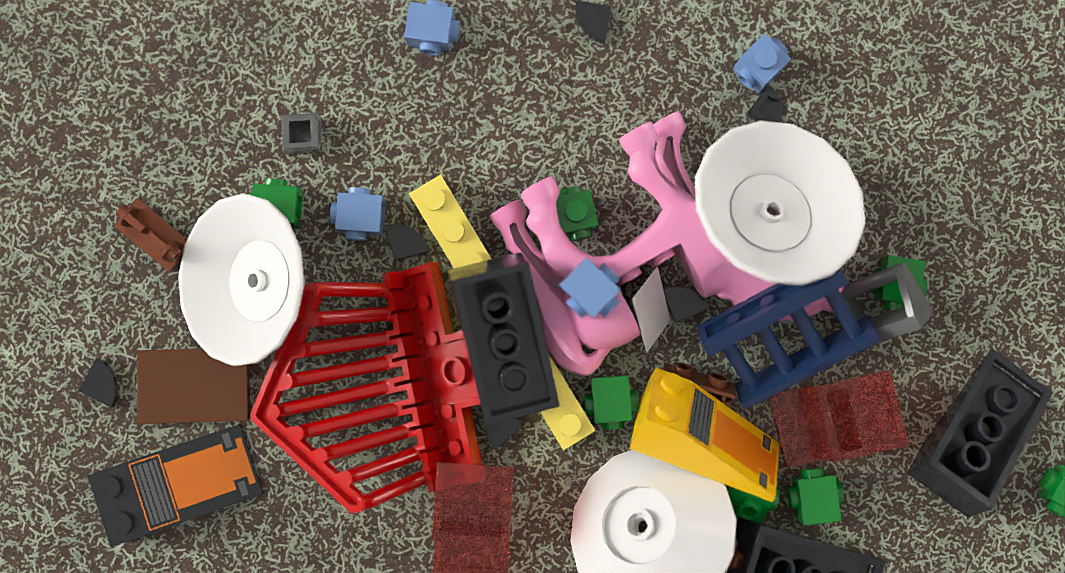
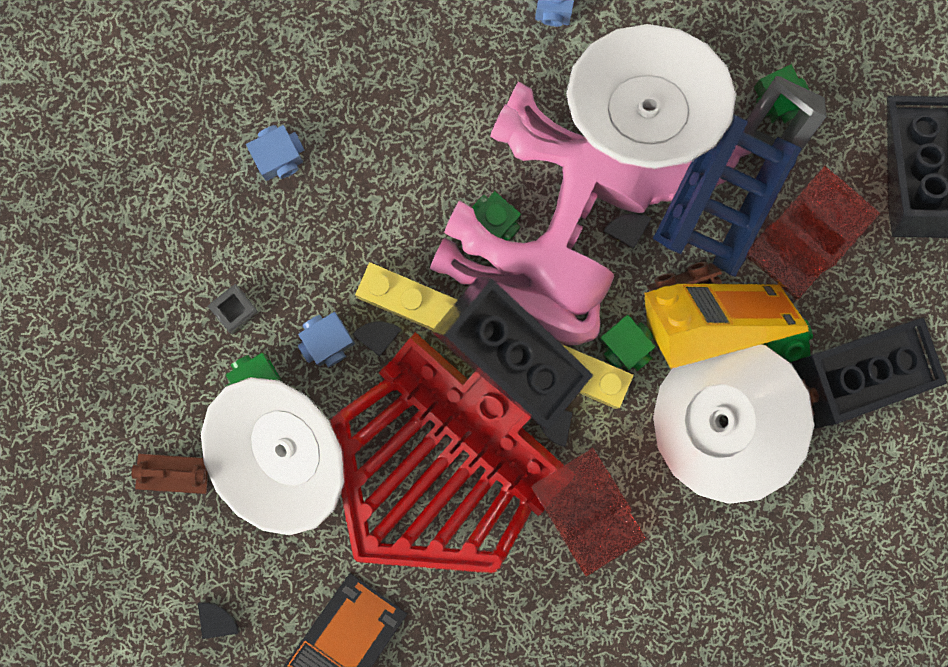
camera: 45 degrees left, 0 degrees up
(190, 387) = (289, 572): reddish brown tile -> none
(592, 289) = (555, 265): medium blue brick -> none
(593, 19) = (398, 57): black tile -> none
(651, 309) = (609, 250): white sticker -> none
(766, 107) = (583, 31): black tile -> none
(815, 497) = (836, 305): green brick -> none

